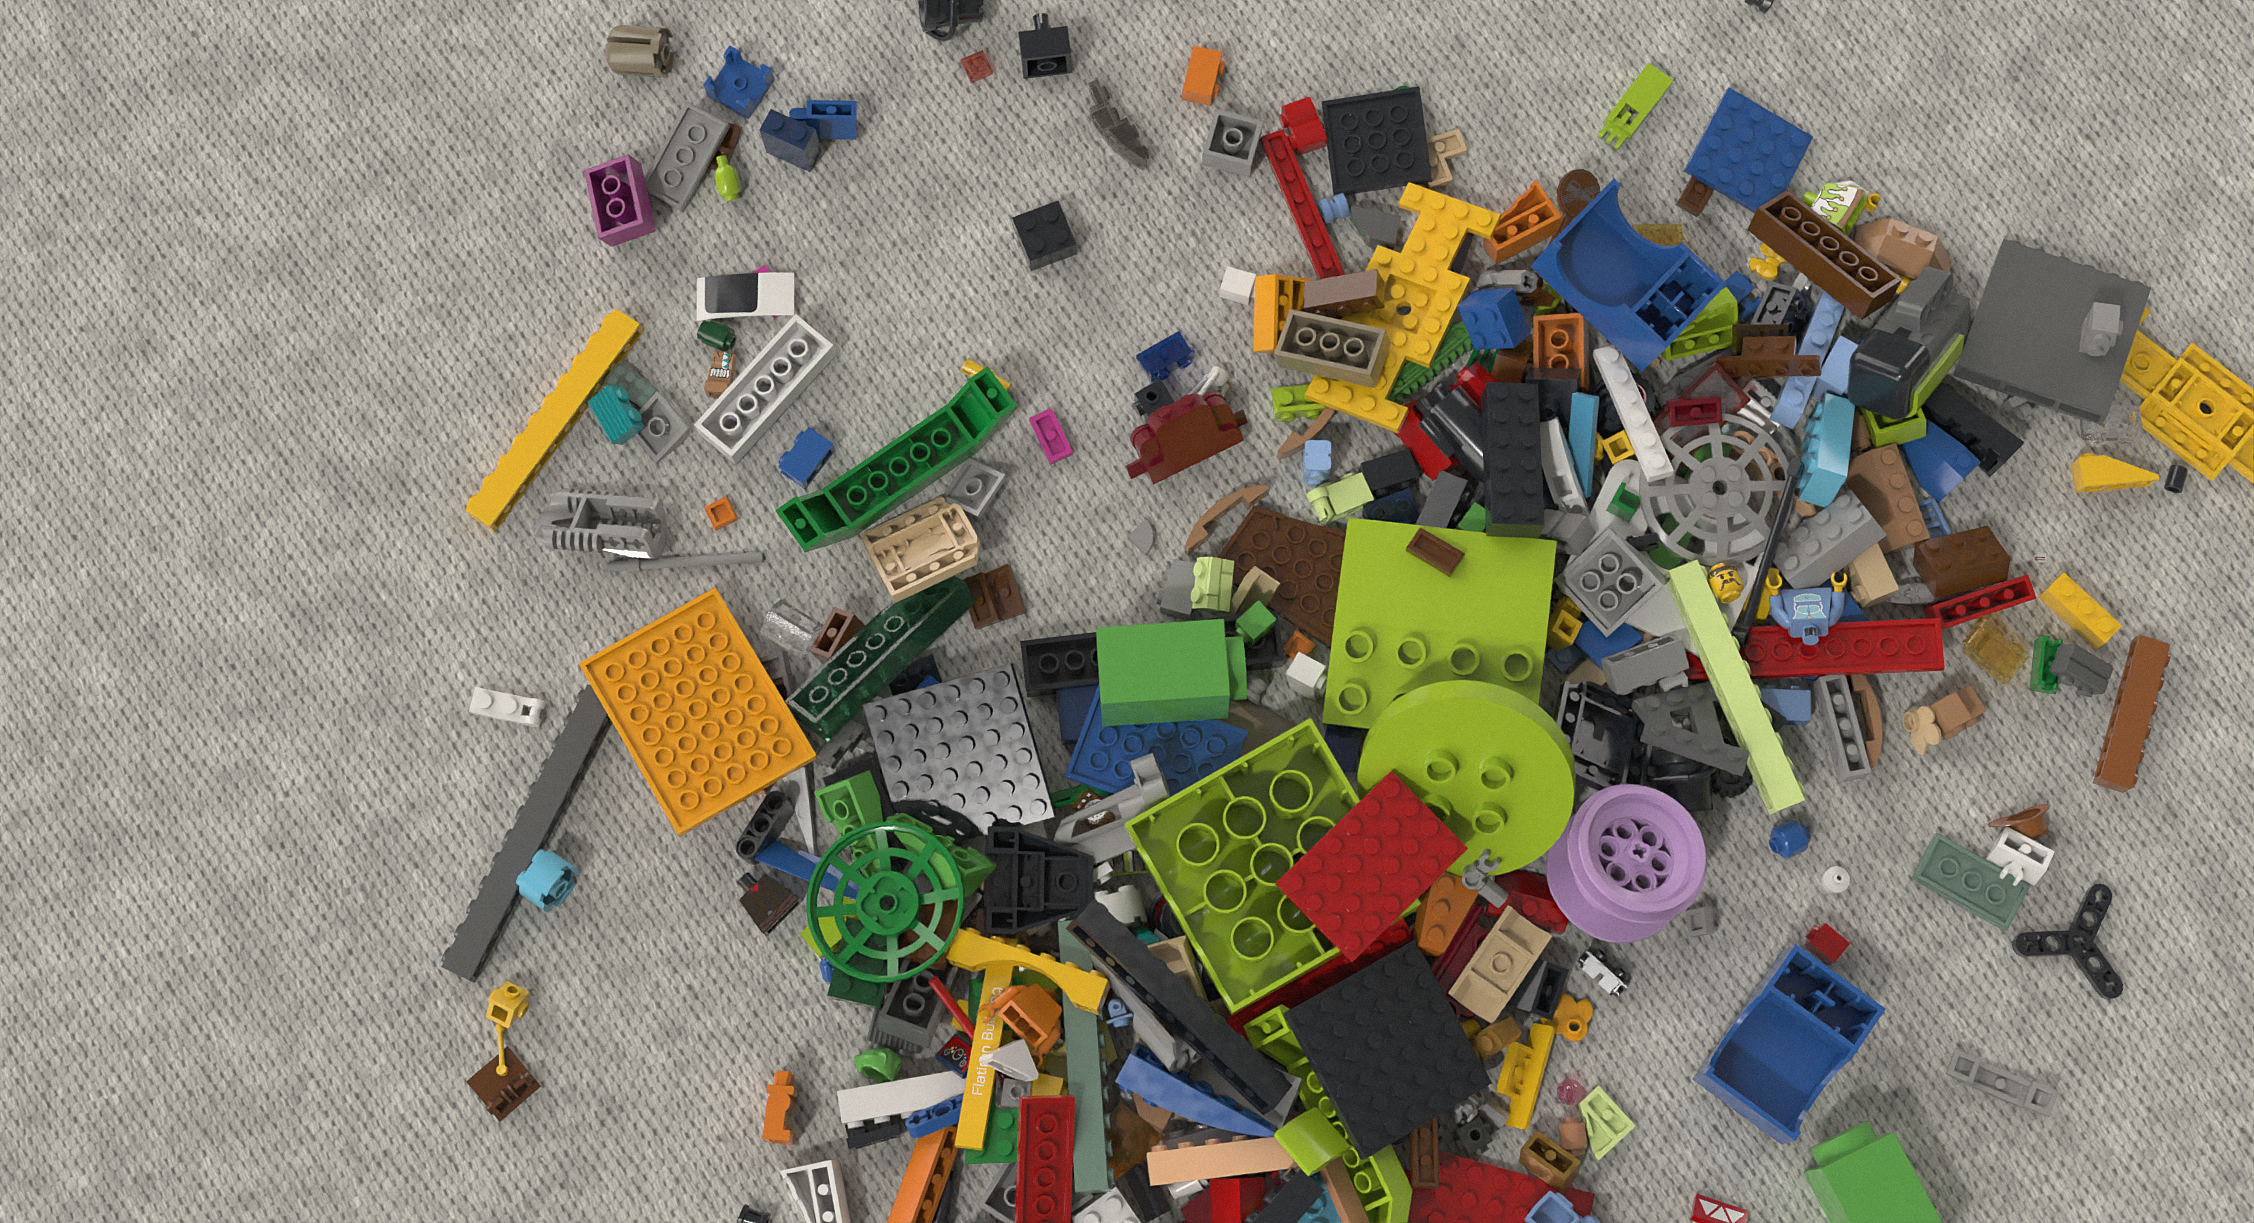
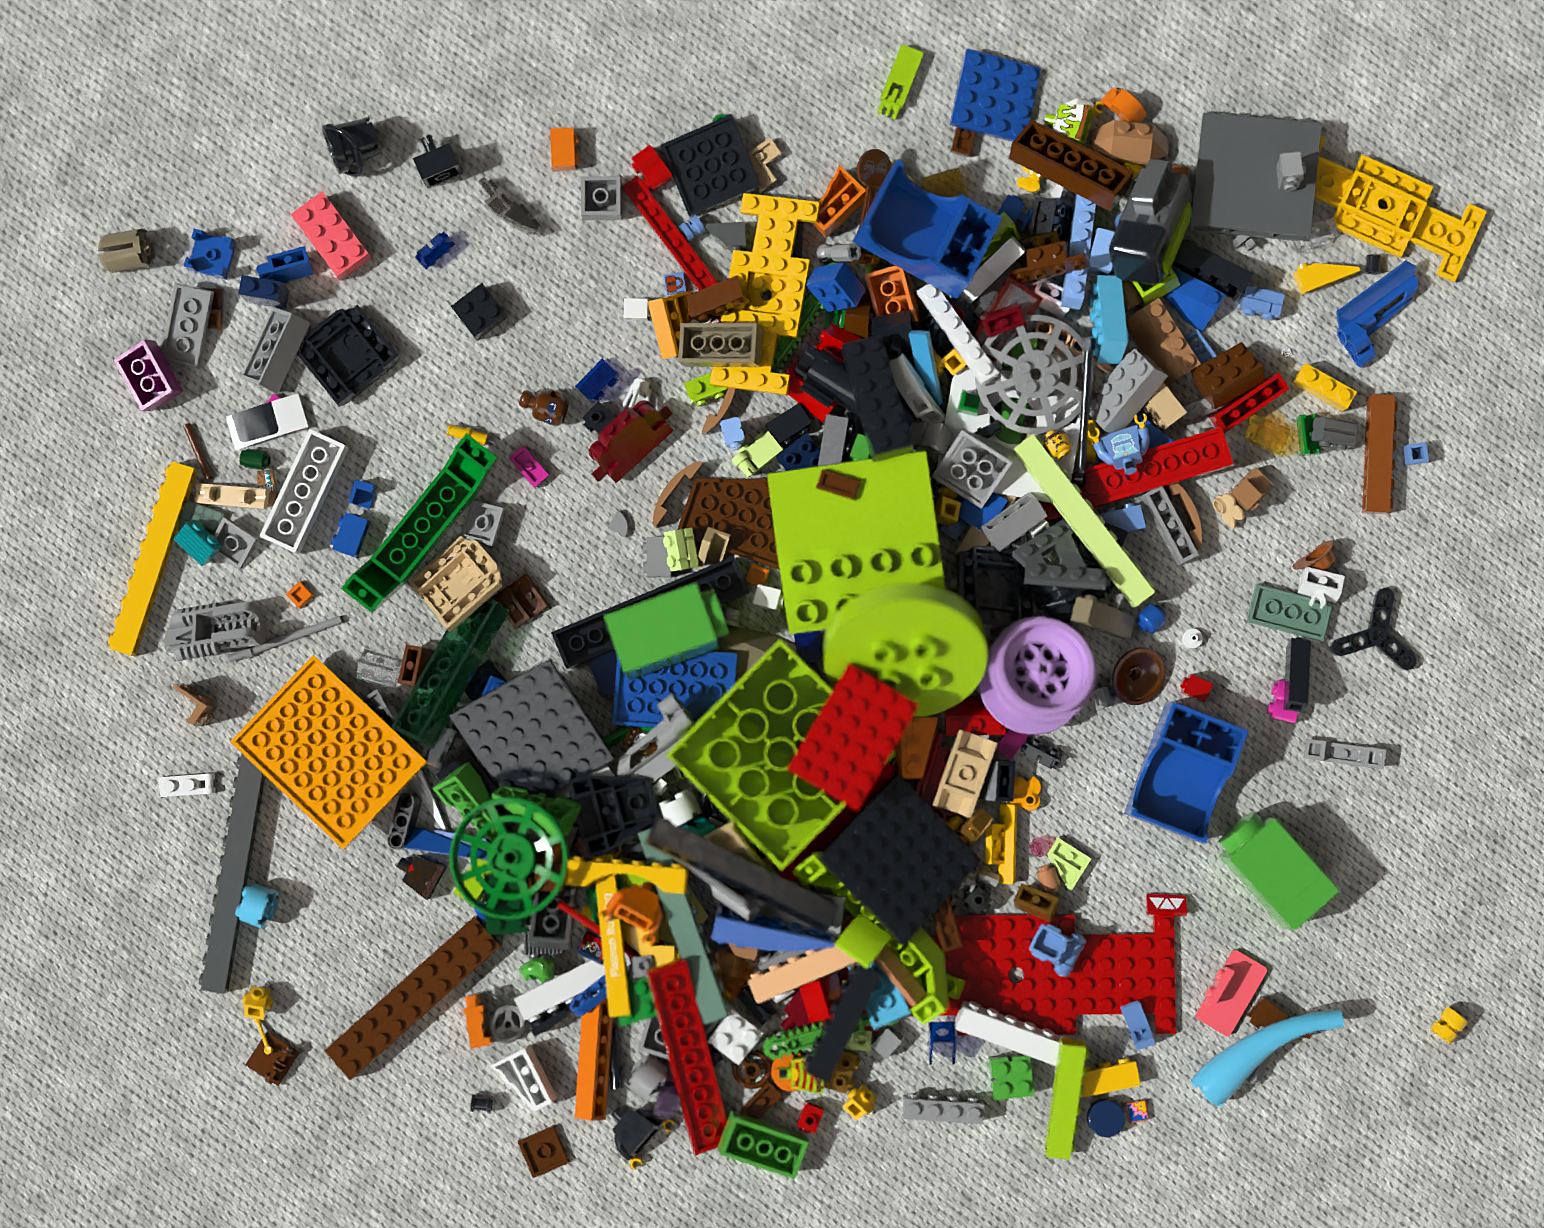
camera: 15 degrees left, 10 degrees up
(556, 618) = (204, 709): none -> medium nougat bracket
(650, 308) = (197, 451): none -> reddish brown bar
(675, 370) = (232, 496): none -> tan hinge
(706, 1055) = (412, 998): none -> reddish brown brick
(727, 180) = (225, 335): lime plant -> none
(782, 214) = (275, 350): none -> light grey slope
(808, 1119) = (499, 1018): none -> light grey piece
(836, 413) = (362, 494): none -> blue panel
(868, 242) = (347, 354): none -> black wedge
(891, 100) = (331, 236): none -> coral brick
(976, 66) = (388, 189): clear red tile -> none
(1001, 155) = (441, 245): none -> clear blue hinge
(1012, 1060) = (633, 944): white slope -> none
(1093, 369) = (546, 407): none -> reddish brown piece
(1118, 1014) = (700, 886): light blue hinge -> none
(1254, 623) = (719, 572): bright green brick -> none
(1294, 265) = (674, 283): none -> tile
(1474, 878) = (931, 716): light grey bar -> none
(1569, 946) = (1011, 743): none -> dark pink tile
(1692, 352) = (992, 269): none -> white piece
(1729, 815) = (1103, 617): none -> dark tan brick
(1763, 913) = (1145, 679): none -> reddish brown dish
(1907, 205) = (1124, 105): none -> orange brick
(1939, 993) = (1275, 708): none -> dark pink brick
(1963, 961) = (1297, 674): none -> black brick
(2023, 486) = (1261, 302): none -> medium blue brick
(2142, 535) = (1359, 317): none -> blue panel
(2185, 720) = (1421, 451): none -> medium blue plate

